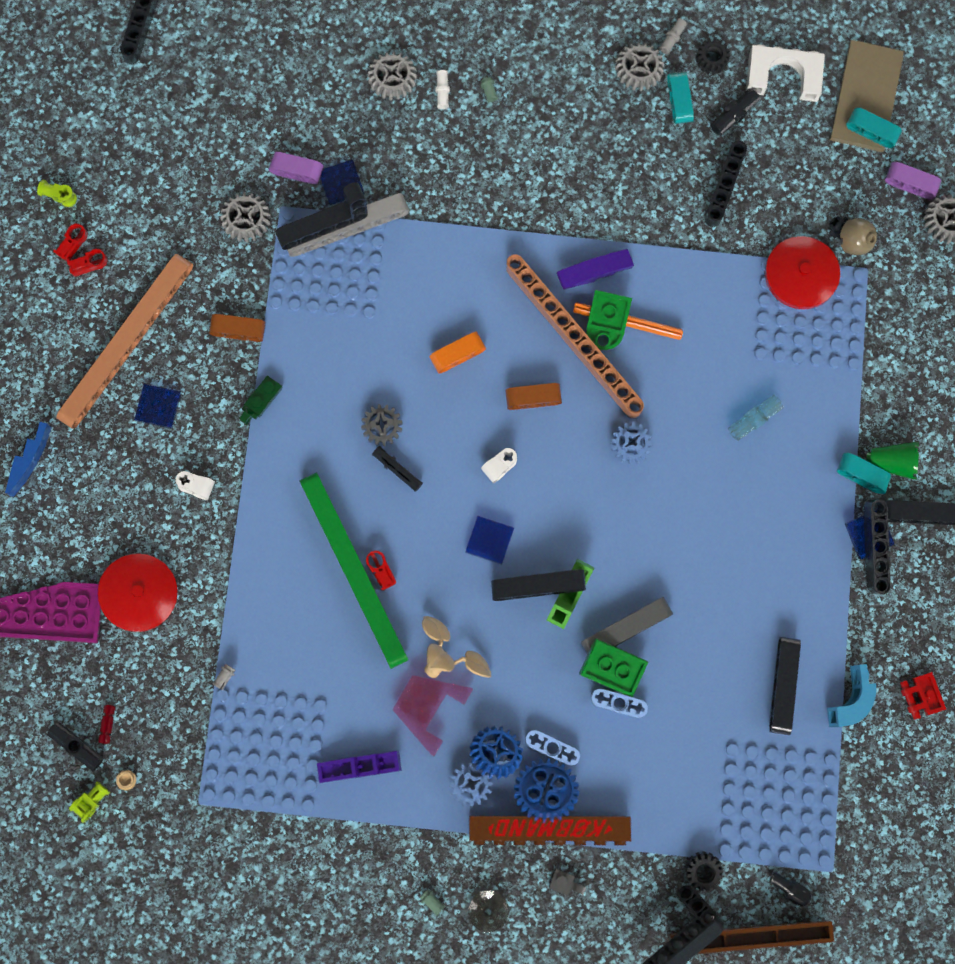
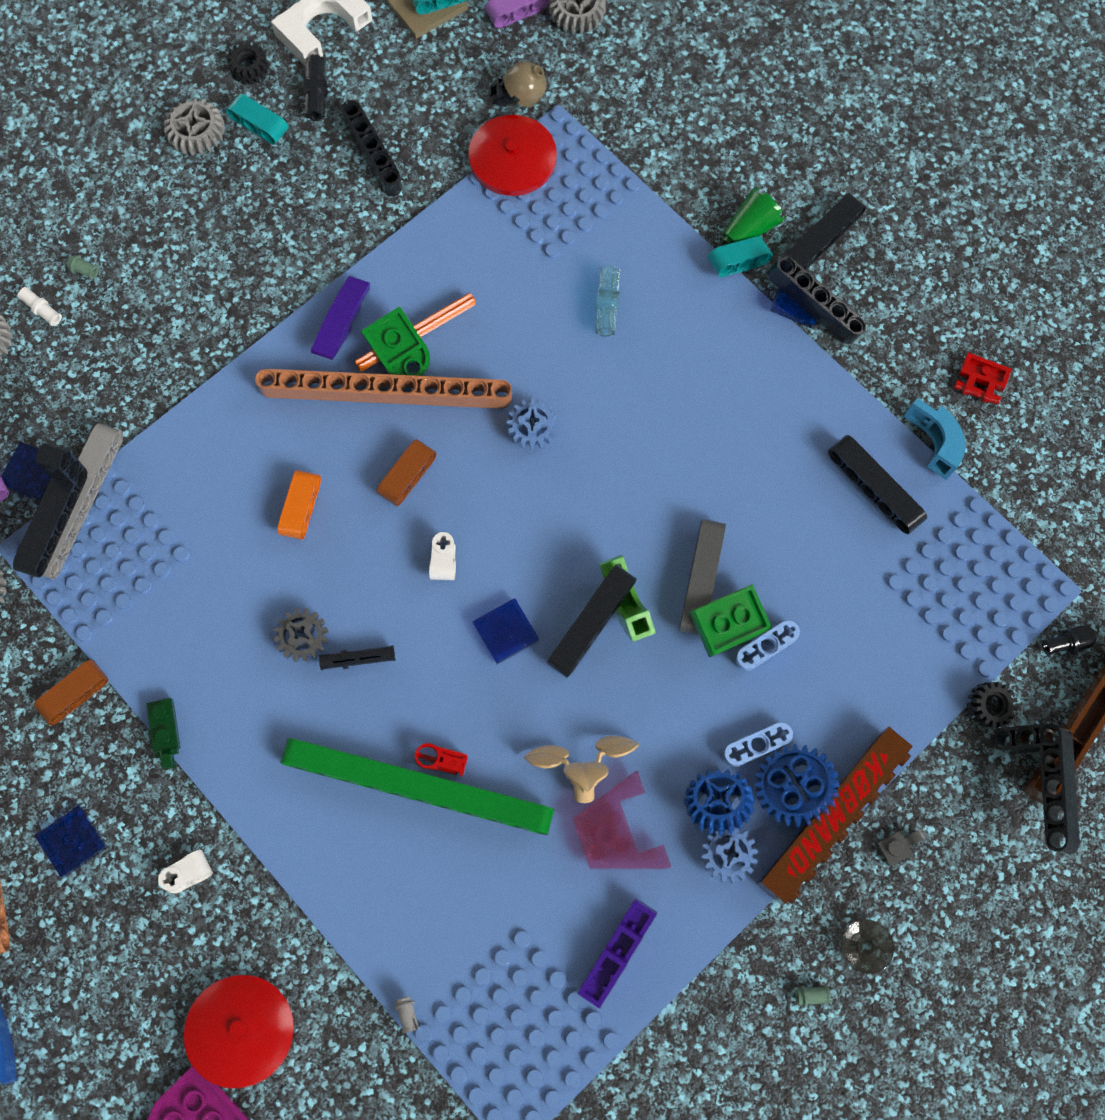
camera: 45 degrees left, 5 degrees down
(673, 36) = (196, 78): light grey pin -> none

